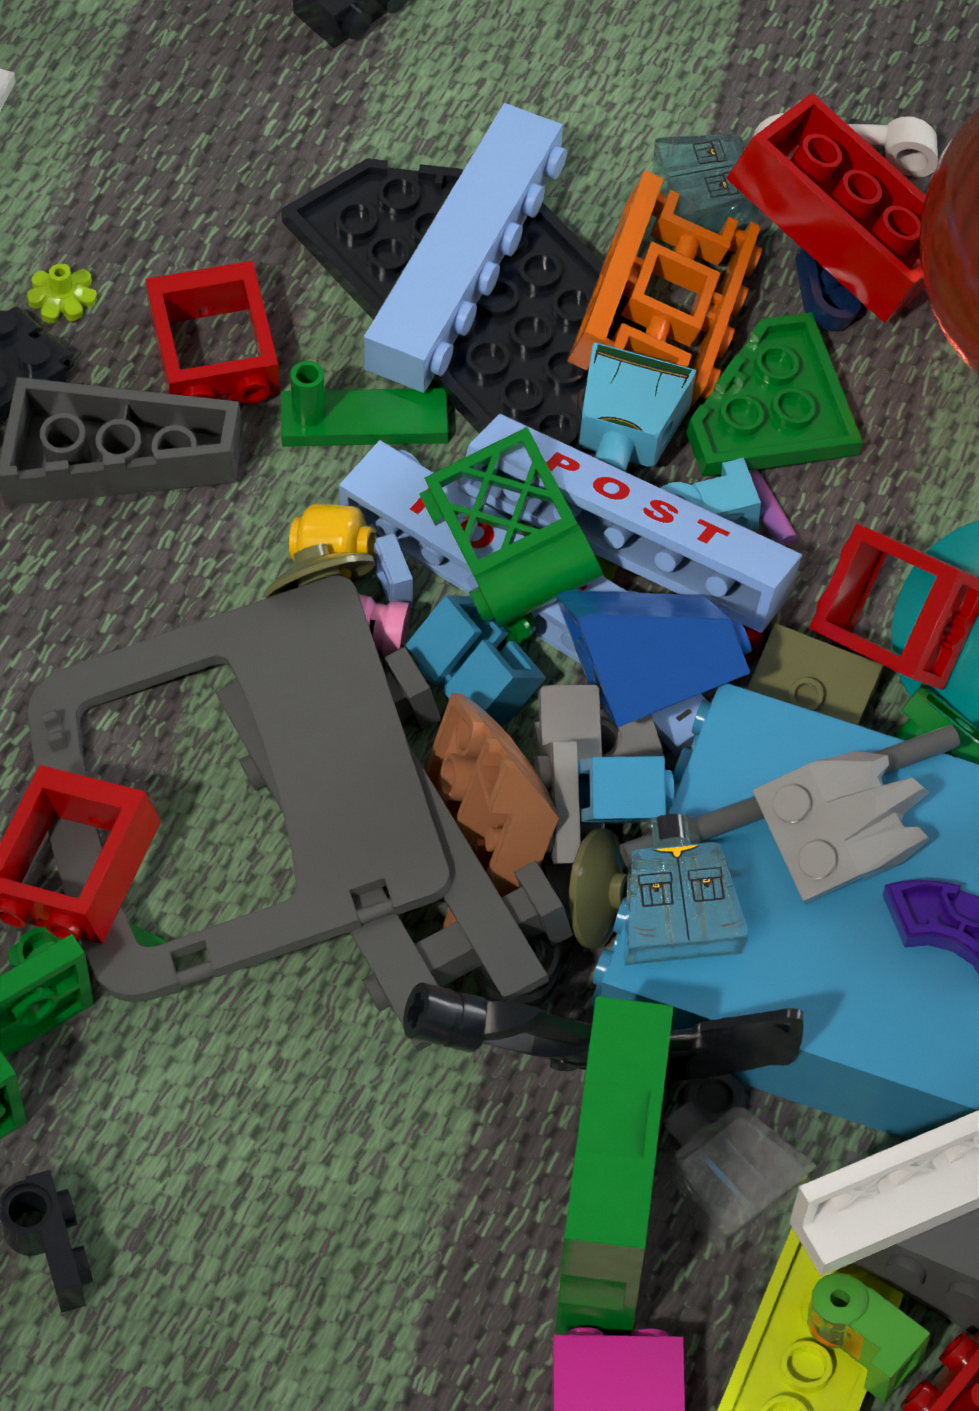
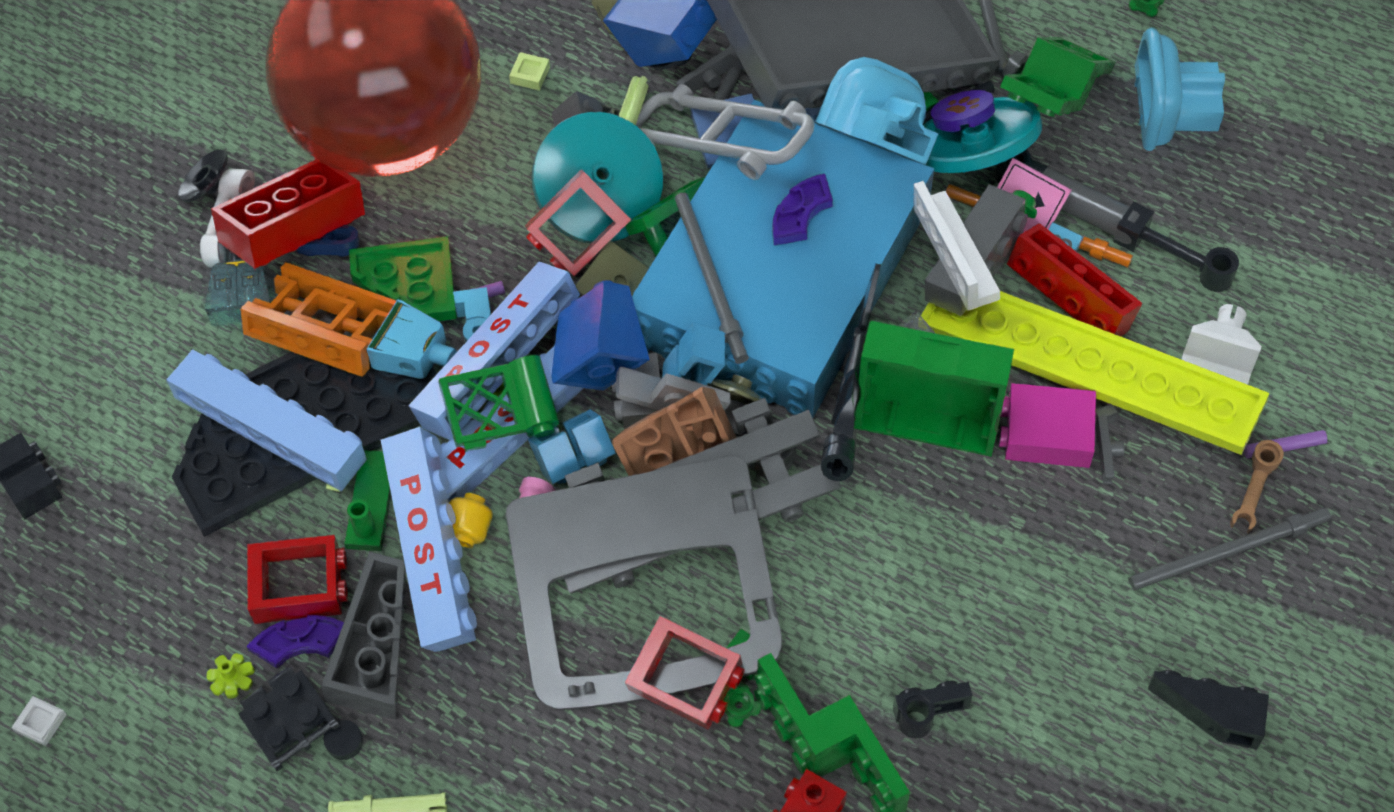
camera: 80 degrees left, 0 degrees up
(121, 350) = (296, 637): none -> dark purple tile
(273, 478) = (429, 540): none -> light blue brick
(316, 564) = (500, 523): olive dish -> none
(392, 570) = (497, 488): light blue tile -> none
(680, 899) = (778, 331): clear light blue torso -> none
(840, 821) = (736, 250): light grey plate -> none
(869, 1330) = (1016, 294): bright green leg -> none
(916, 102) = (203, 176): none -> black dish

